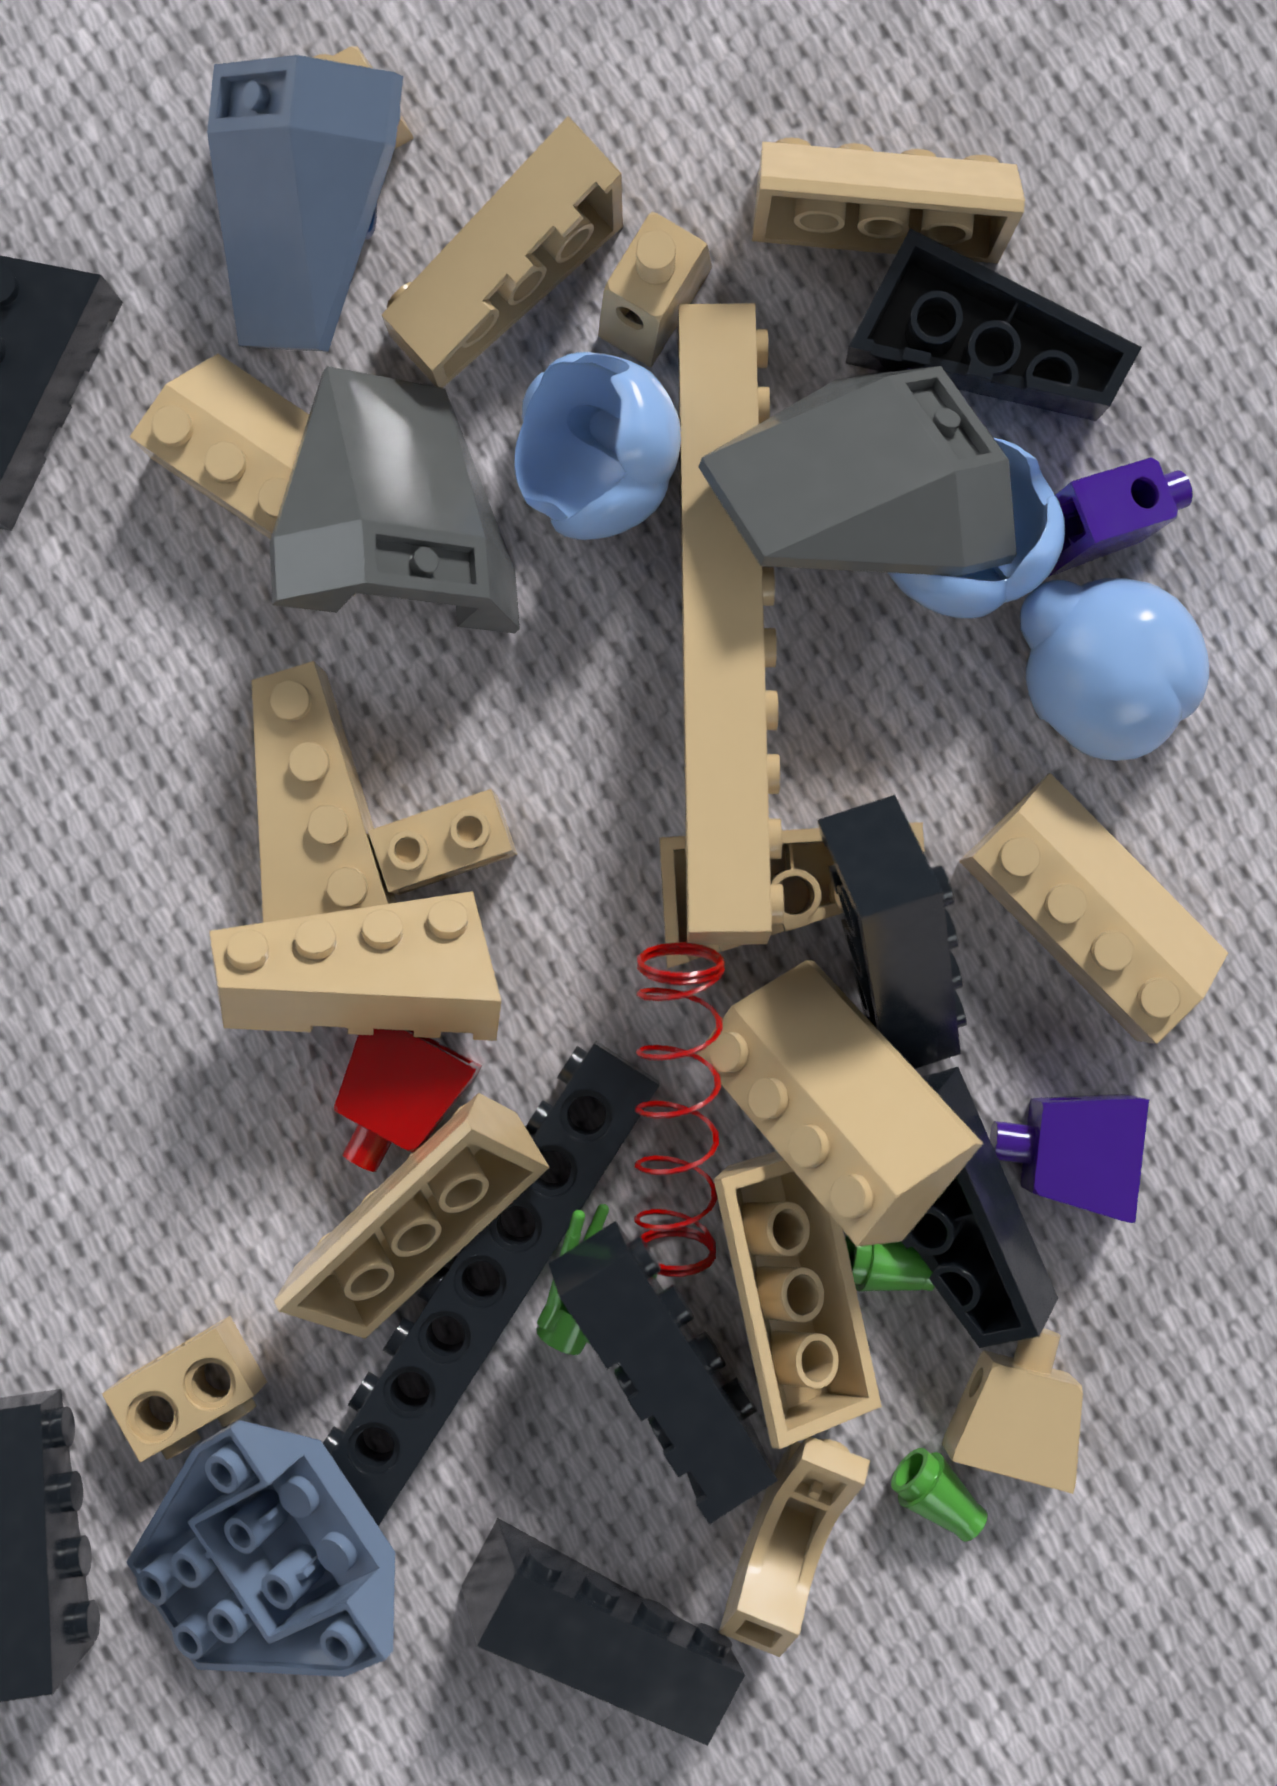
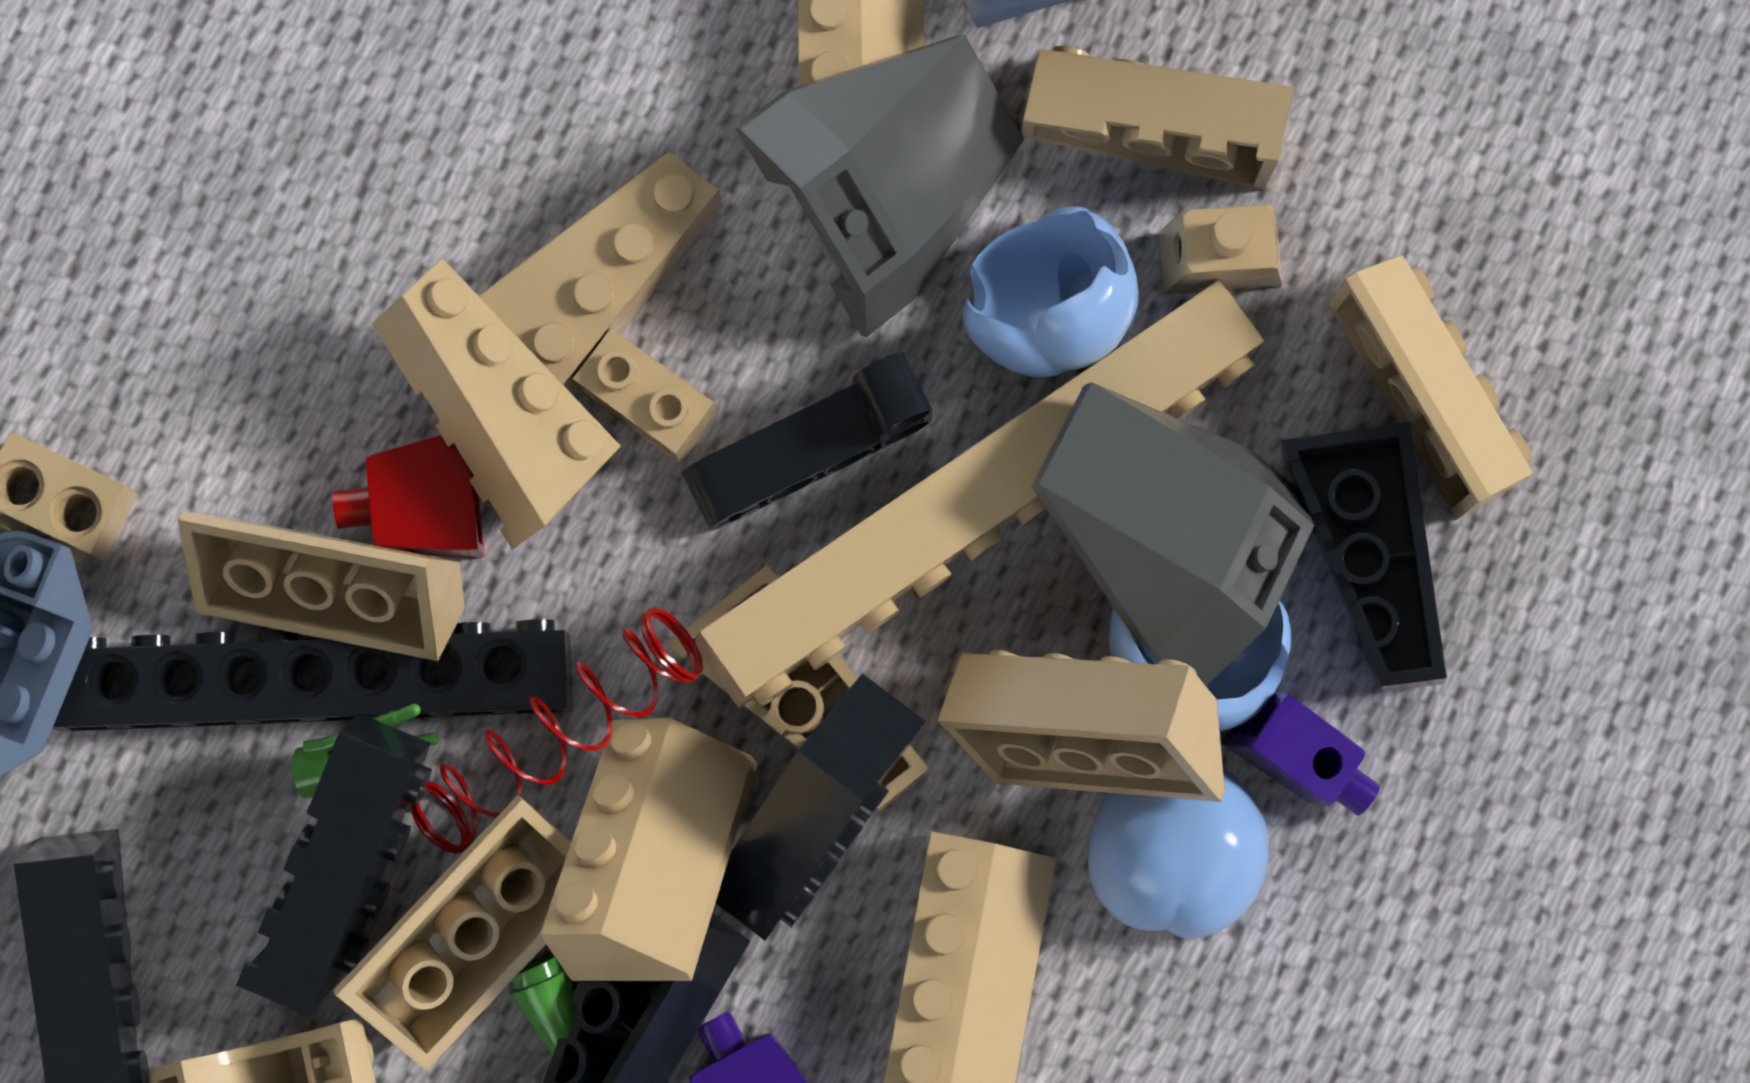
camera: 50 degrees right, 5 degrees down
(577, 733) = (810, 444): none -> black beam
(982, 661) = (1087, 724): none -> tan slope

